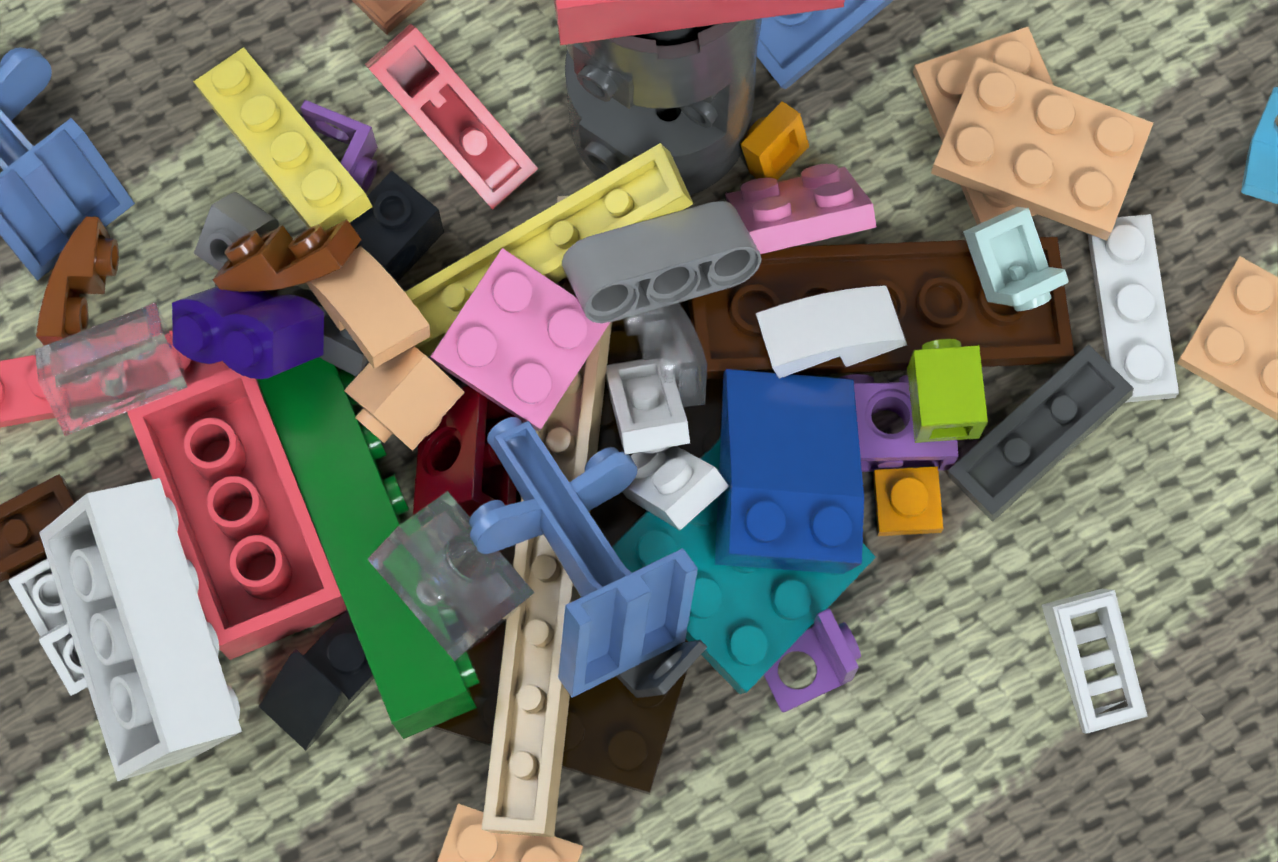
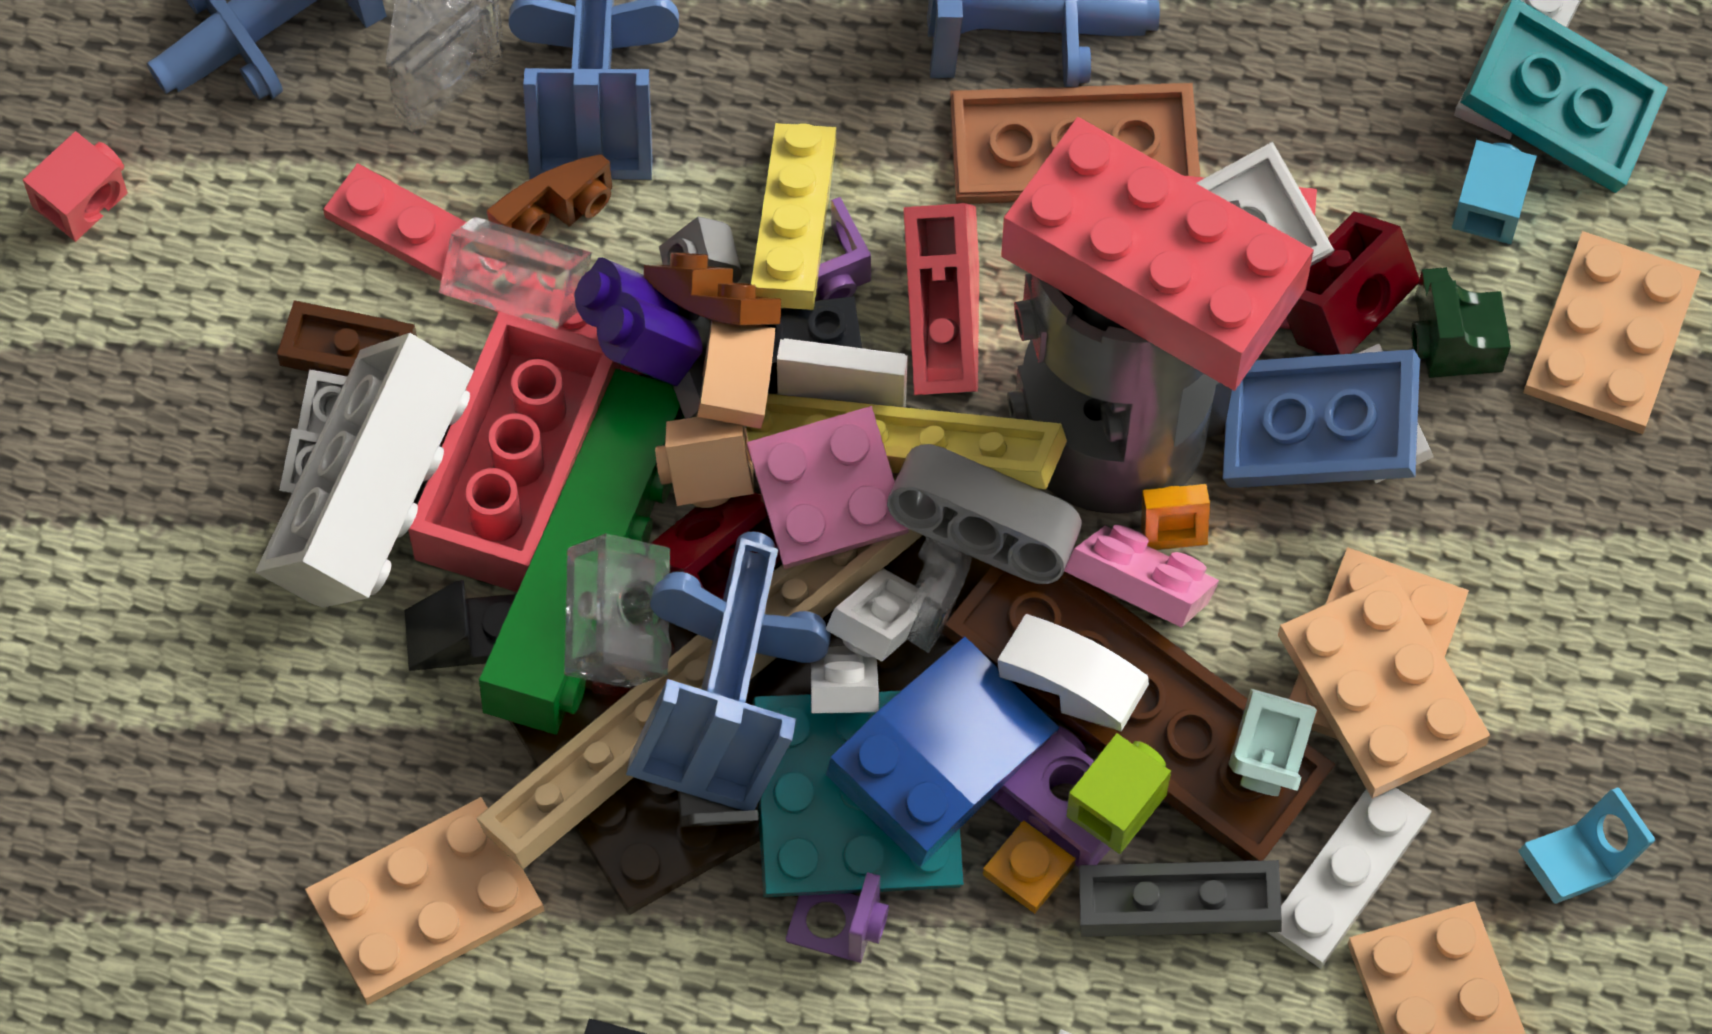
camera: 40 degrees right, 10 degrees down
(444, 238) = (841, 373): none -> white tile

